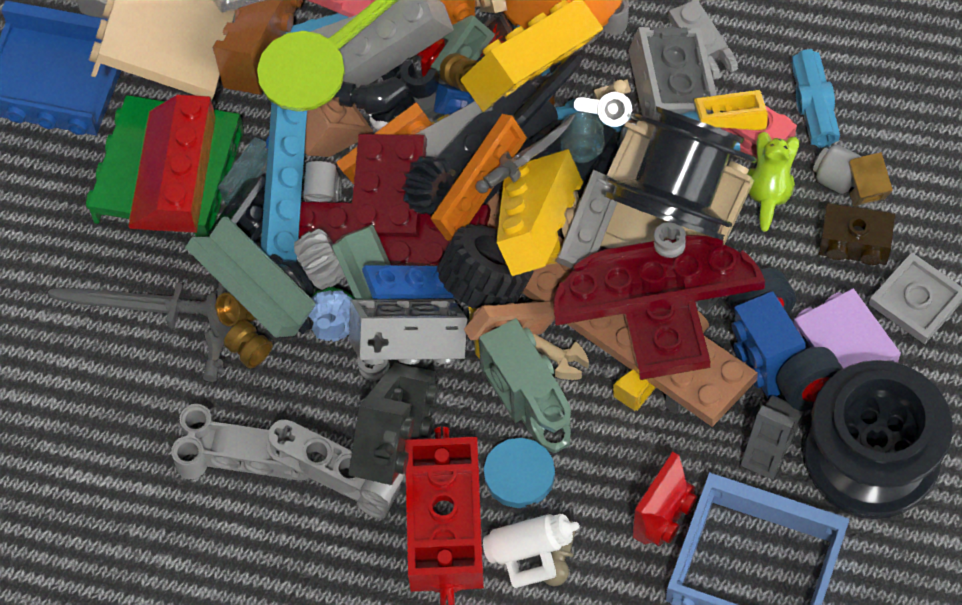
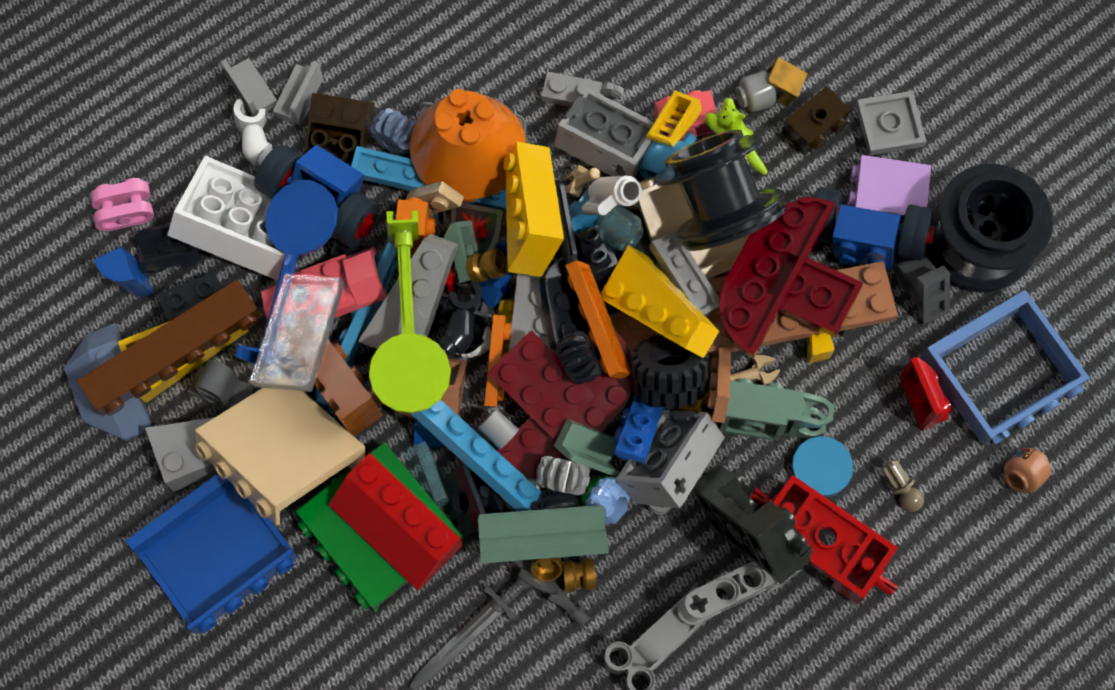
camera: 55 degrees left, 10 degrees up
(510, 166) = (614, 278): dark grey piece -> none
(527, 540) = (889, 497): white piece -> none
(666, 248) = (761, 242): light grey bush -> none
(815, 98) = (690, 62): dark azure piece -> none

